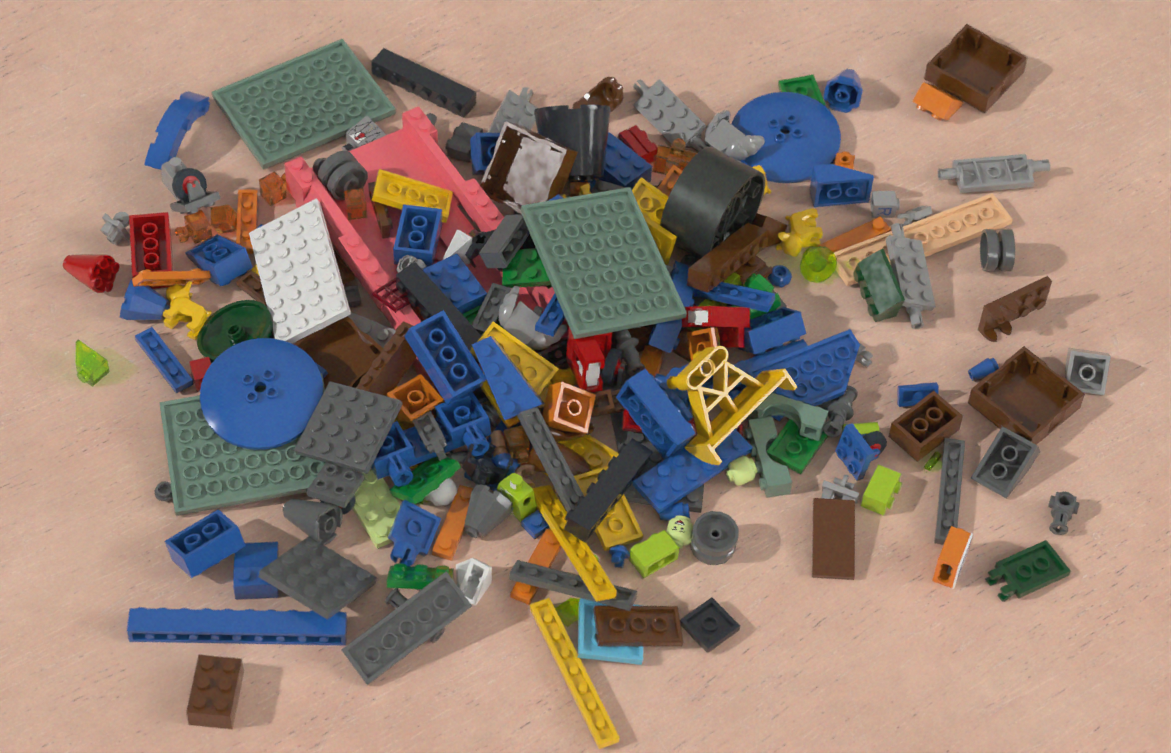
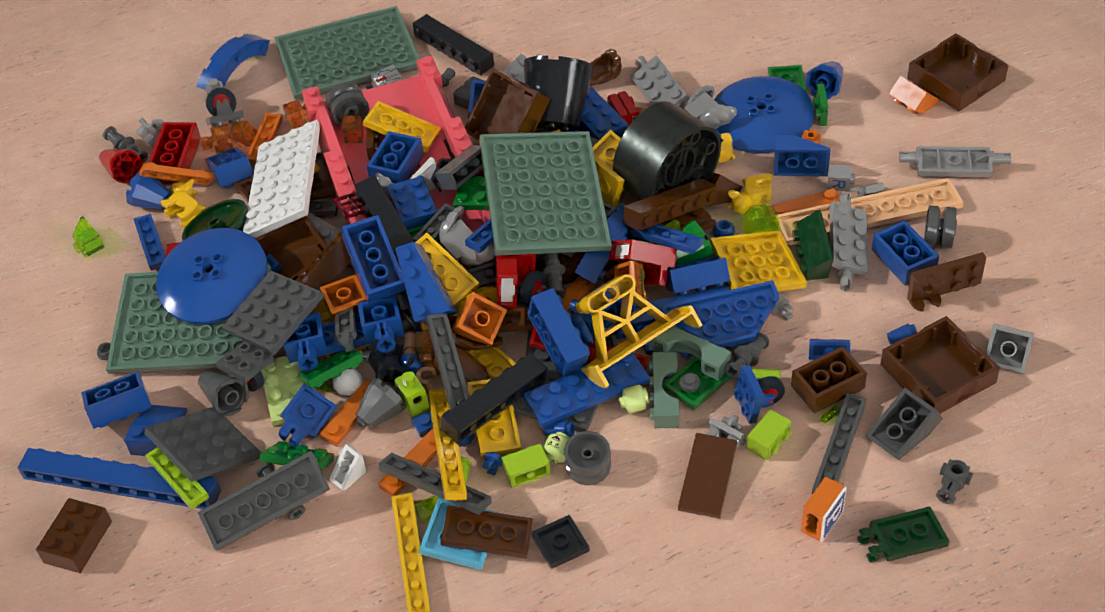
camera: 20 degrees right, 5 degrees down
(82, 244) = (121, 142): none -> dark grey piece
(327, 630) = (190, 492): none -> lime plate
(792, 446) = (689, 382): none -> dark grey plate
(827, 307) = (759, 259): none -> yellow plate
(846, 121) = (821, 104): none -> green plate
(968, 281) = (903, 250): none -> blue brick

